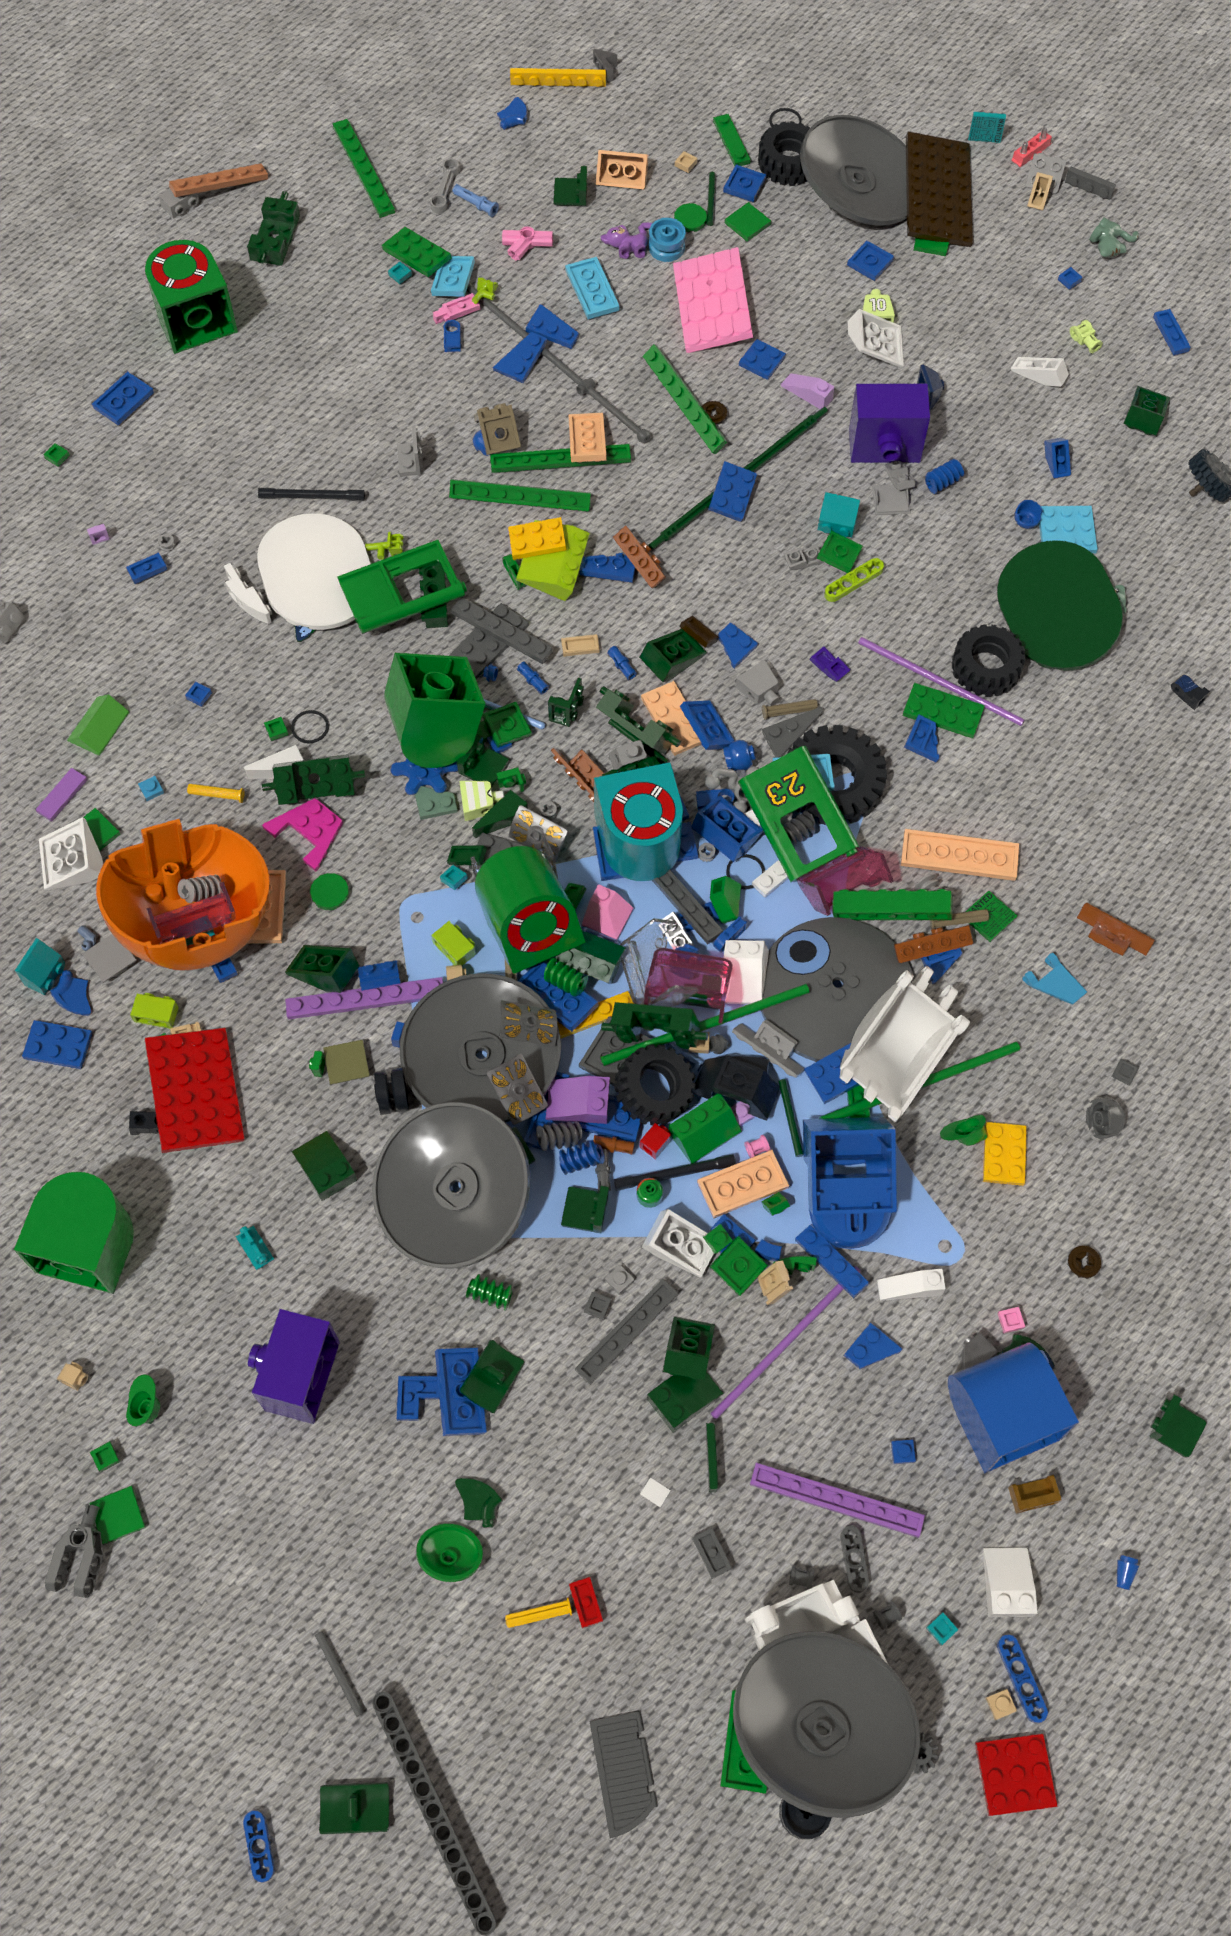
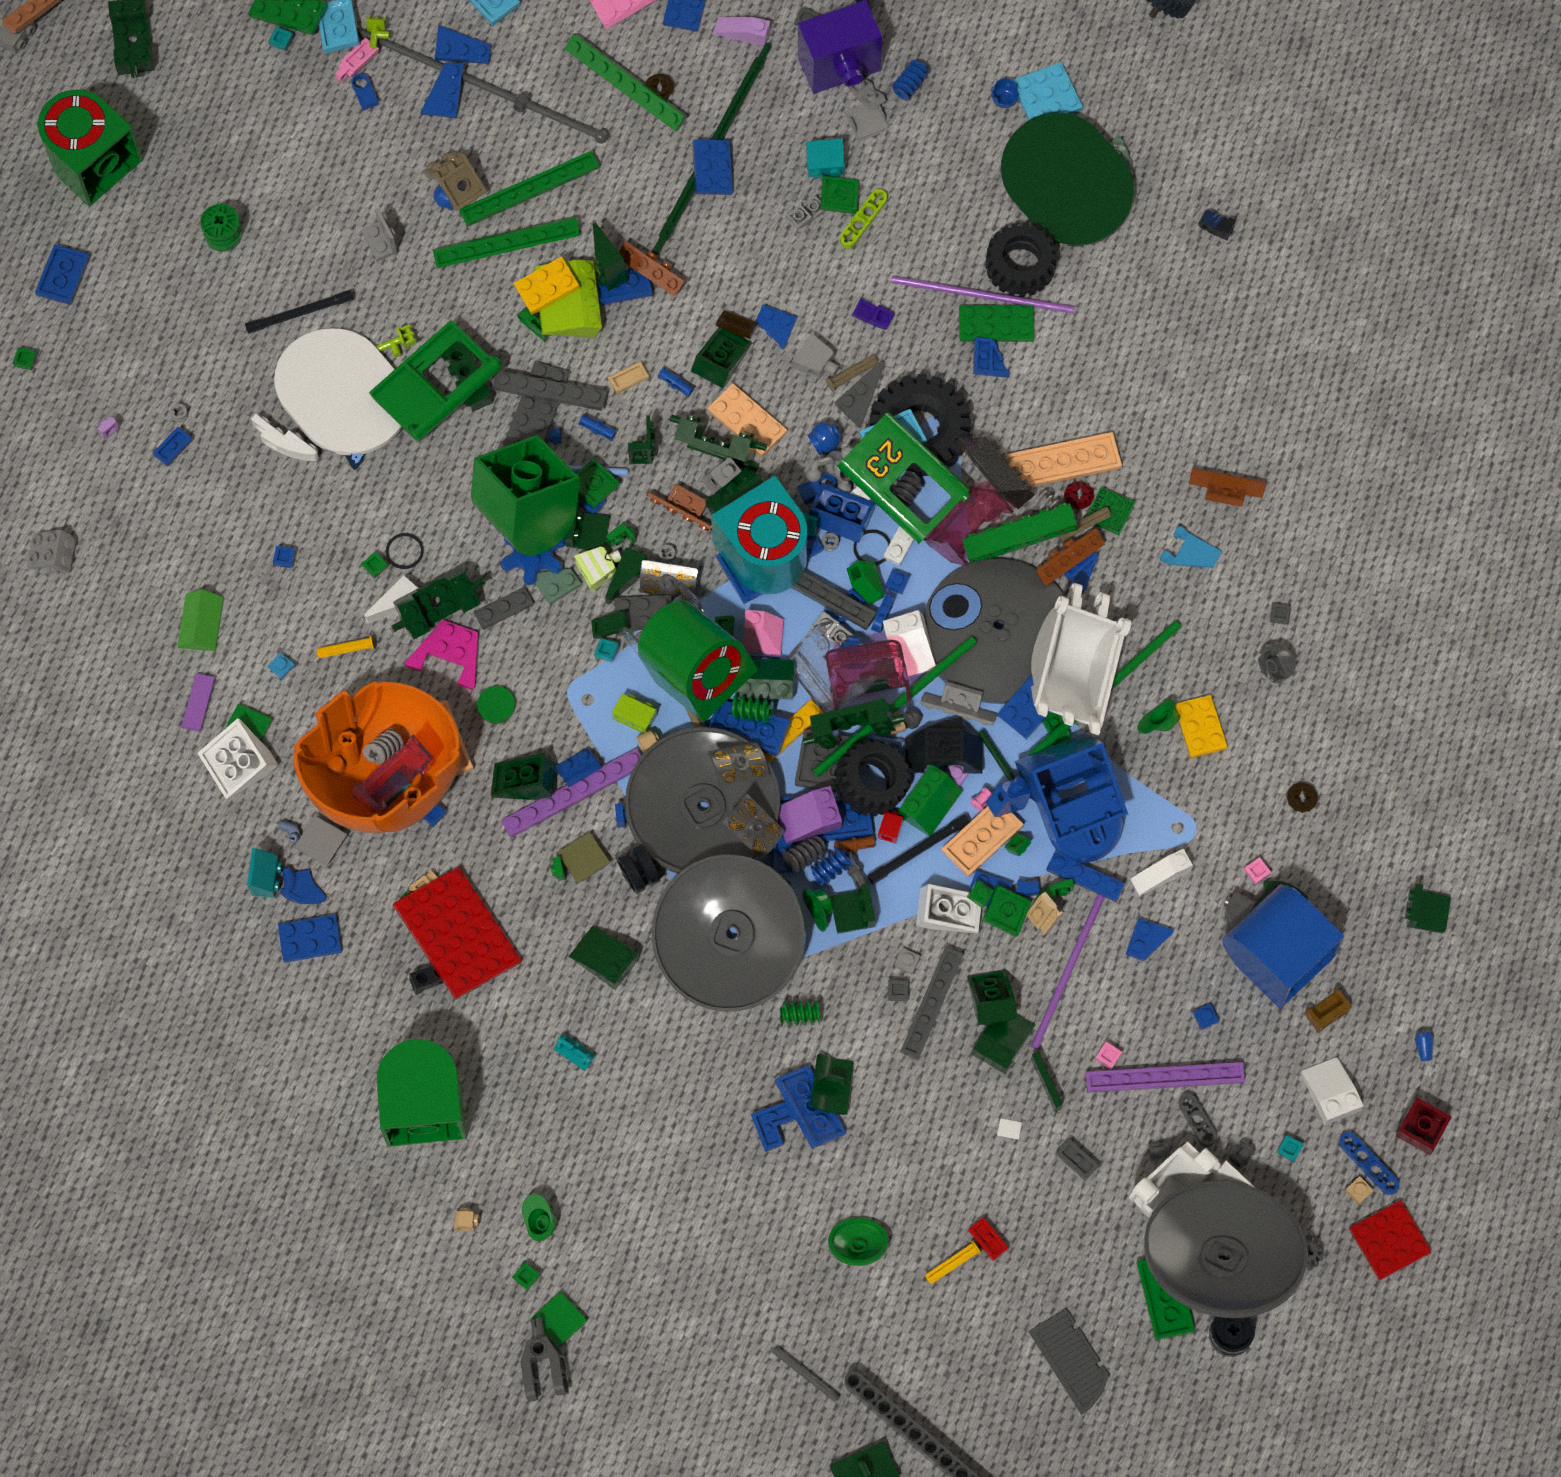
camera: 20 degrees left, 5 degrees up
(154, 1010) = (386, 874): lime brick -> none
(275, 402) = (221, 227): none -> green wheel
(294, 1365) = (661, 1137): dark purple brick -> none
(376, 807) = (503, 608): none -> dark grey plate
(479, 1501) = (863, 1191): dark green arm -> none
(554, 1191) = (819, 905): none -> green piece
(587, 437) = (548, 158): light nougat plate -> none
(601, 536) = (608, 261): none -> dark green slope
(649, 1192) = (904, 875): green head -> none
(690, 826) = (812, 522): none -> teal plate
(707, 724) = (783, 417): blue plate -> none
(756, 910) = (897, 581): none -> blue plate
(783, 1153) = (1009, 797): none -> blue torso
(786, 1454) = (1108, 1055): none -> bright pink plate
(892, 838) = (997, 469): none -> clear smoke slope
(969, 897) = (1071, 498): none -> dark red gear
(1058, 457) = (1011, 21): blue slope -> none
(1095, 1661) = (1423, 1126): none -> dark red brick

